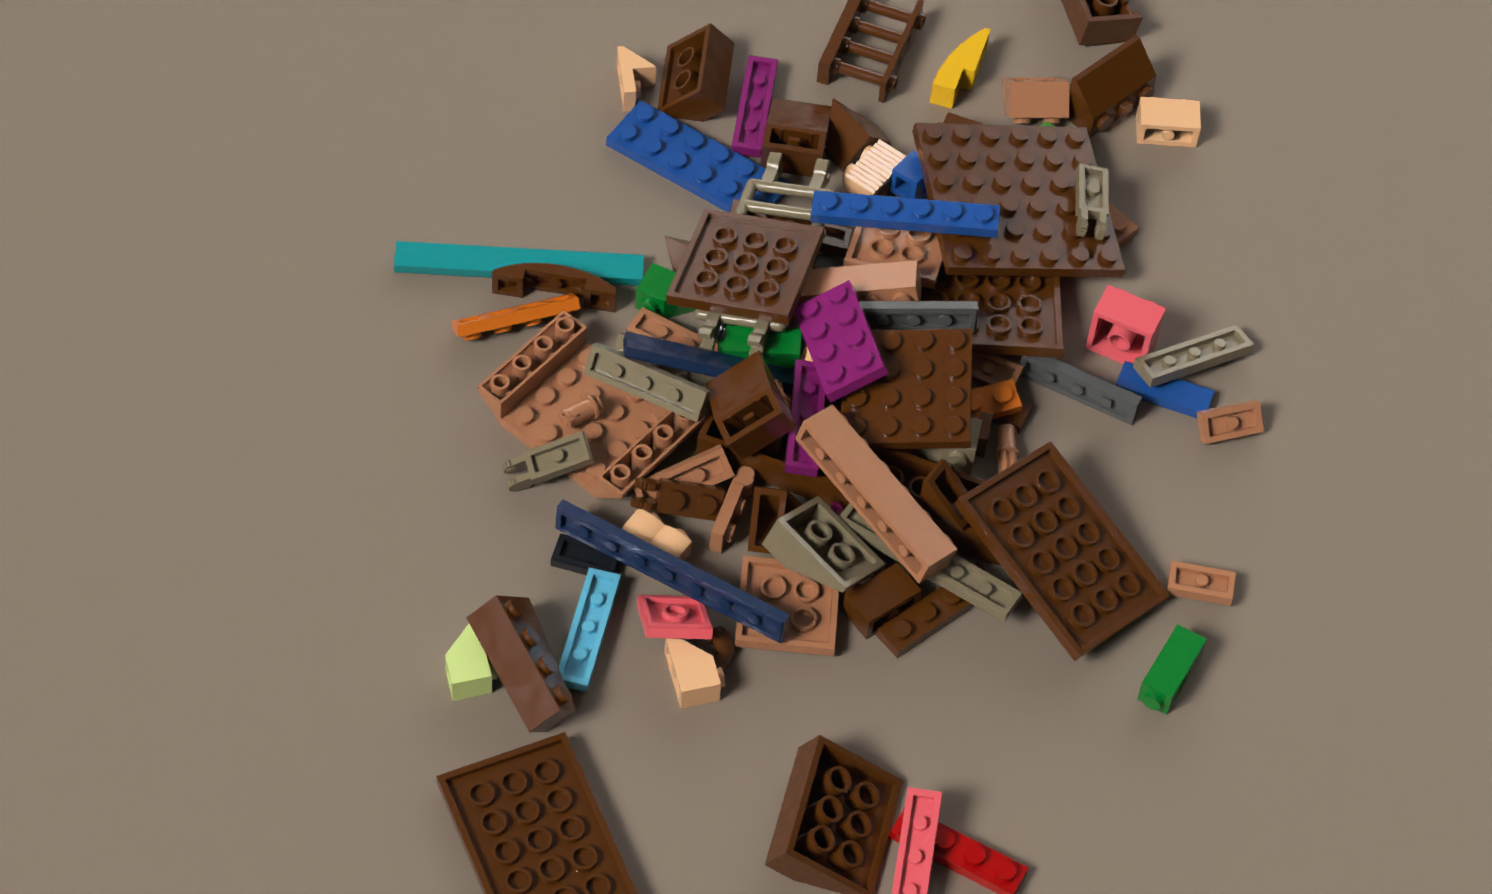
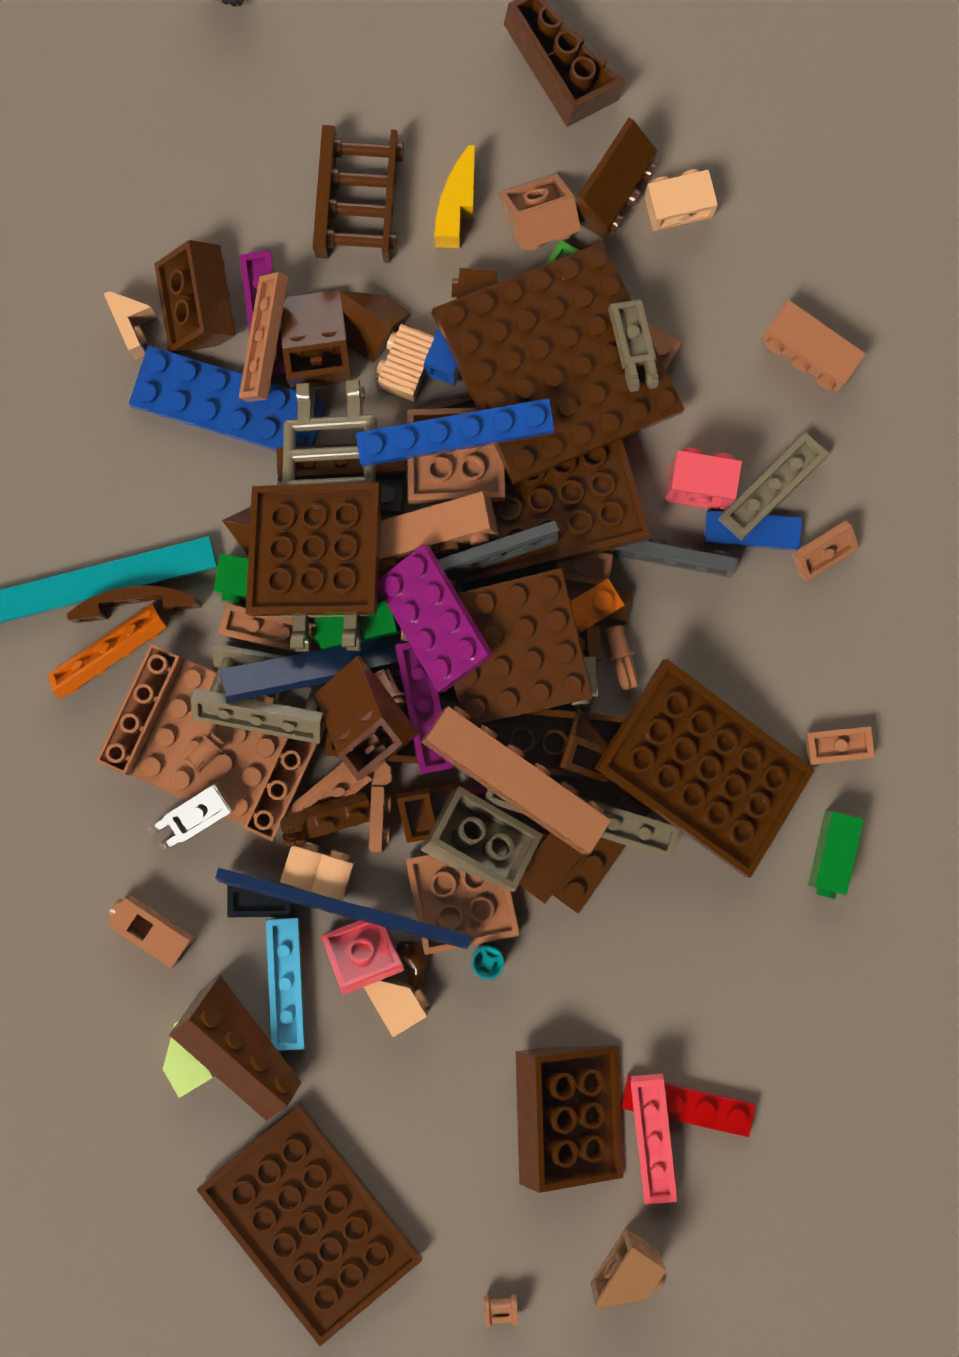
camera: 10 degrees left, 30 degrees up
(473, 547) = (150, 930): none -> nougat brick
(750, 114) = (263, 337): none -> nougat plate
(795, 664) = (485, 965): none -> teal wheel
(1261, 261) = (812, 347): none -> nougat brick

